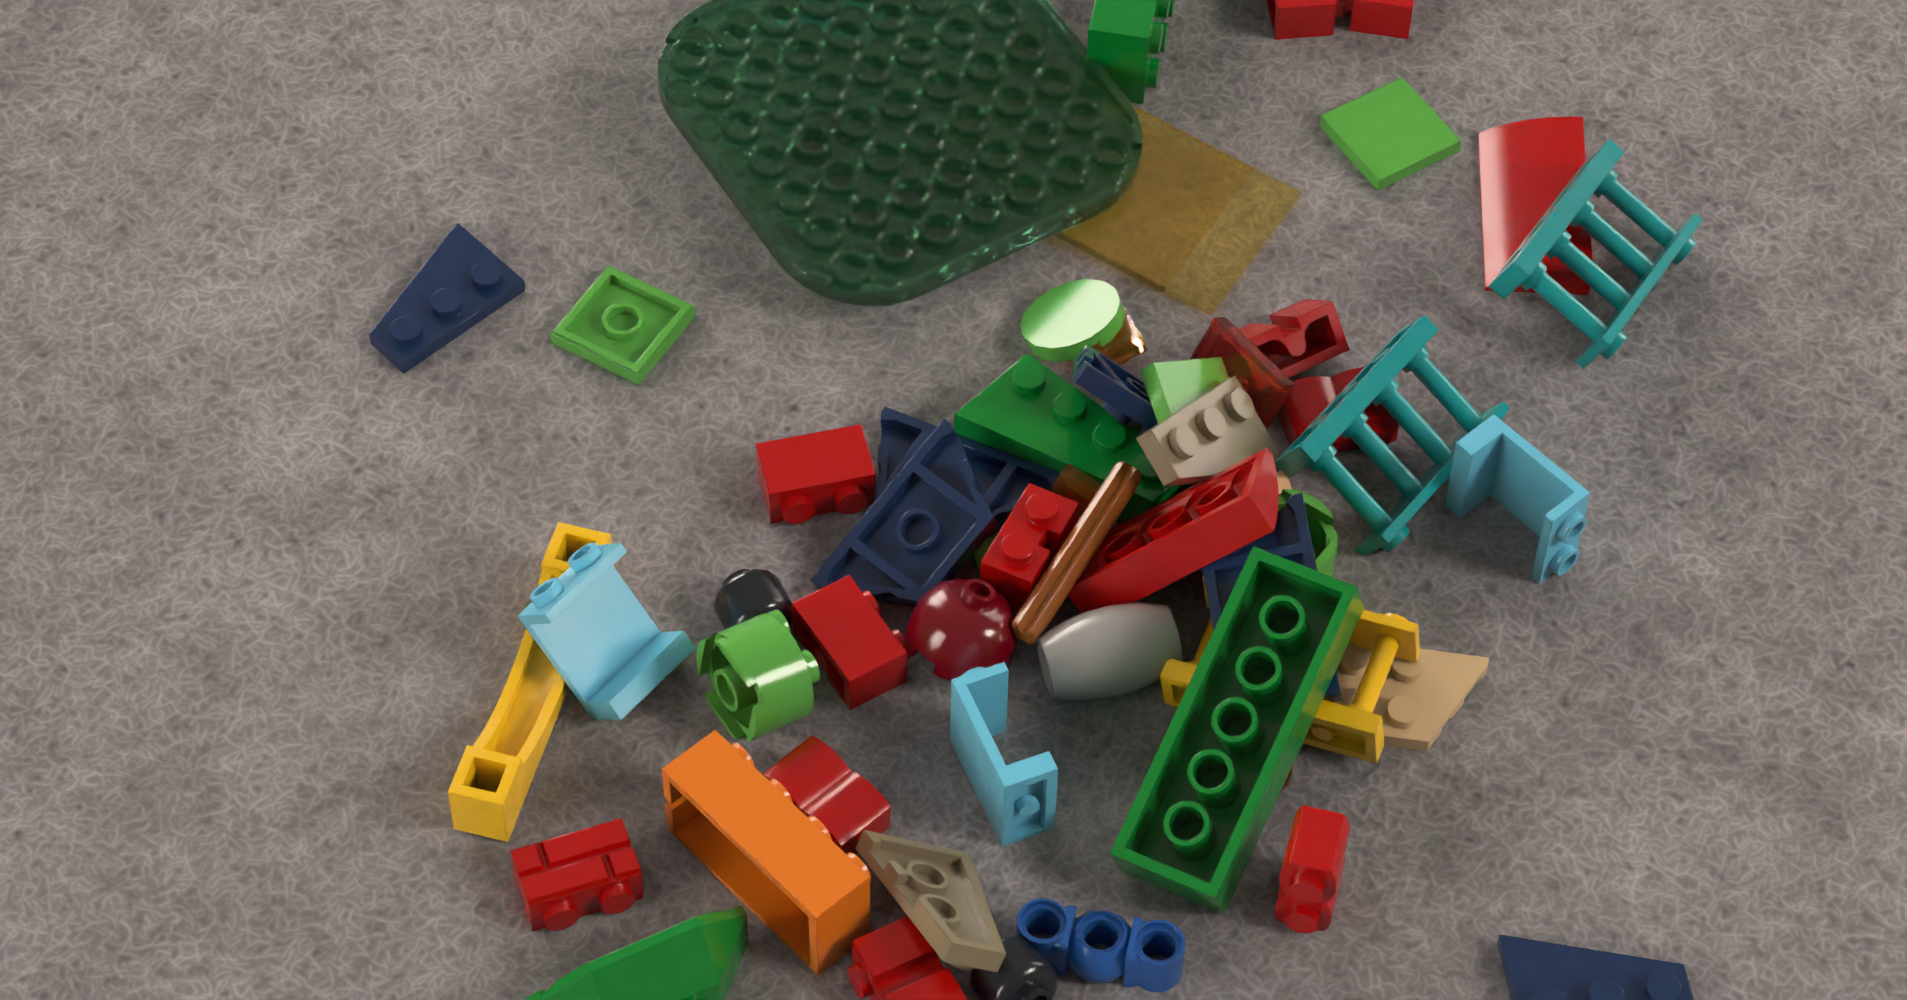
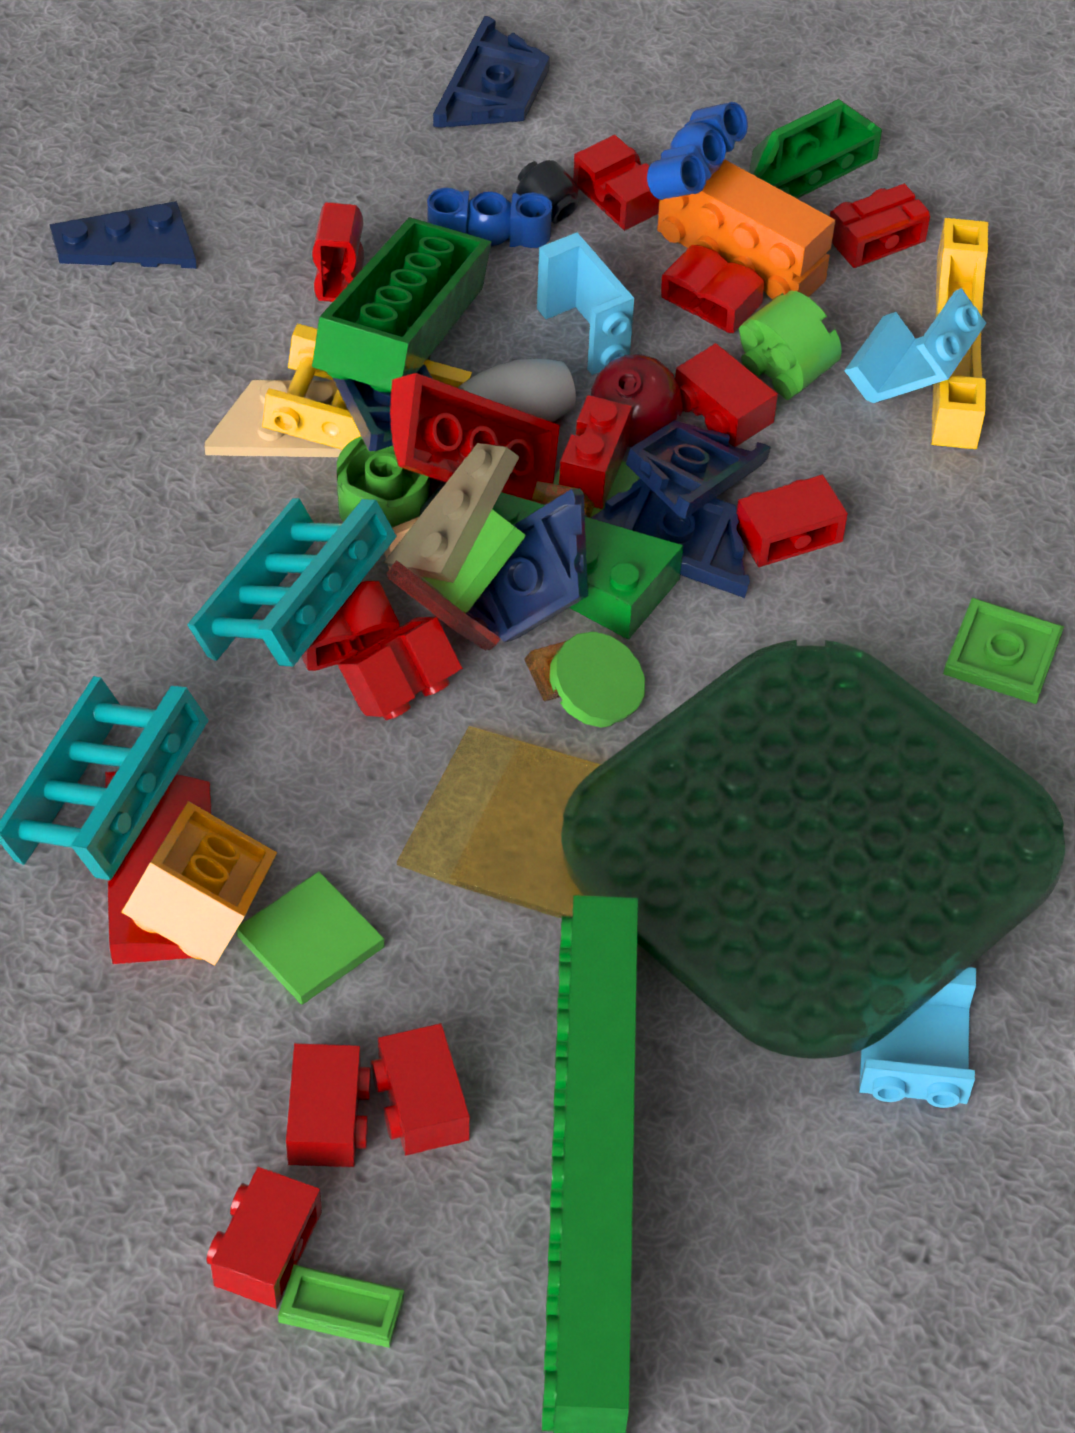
camera: 170 degrees right, 0 degrees up
(749, 594) = (808, 415): black head -> none
(824, 848) = (697, 151): none -> blue piece
(939, 896) = (611, 212): dark tan wing -> none
(1076, 552) = (552, 436): dark orange axle -> none
(1494, 150) = (200, 884): none -> light orange slope
(1526, 483) = (188, 558): medium azure panel -> none

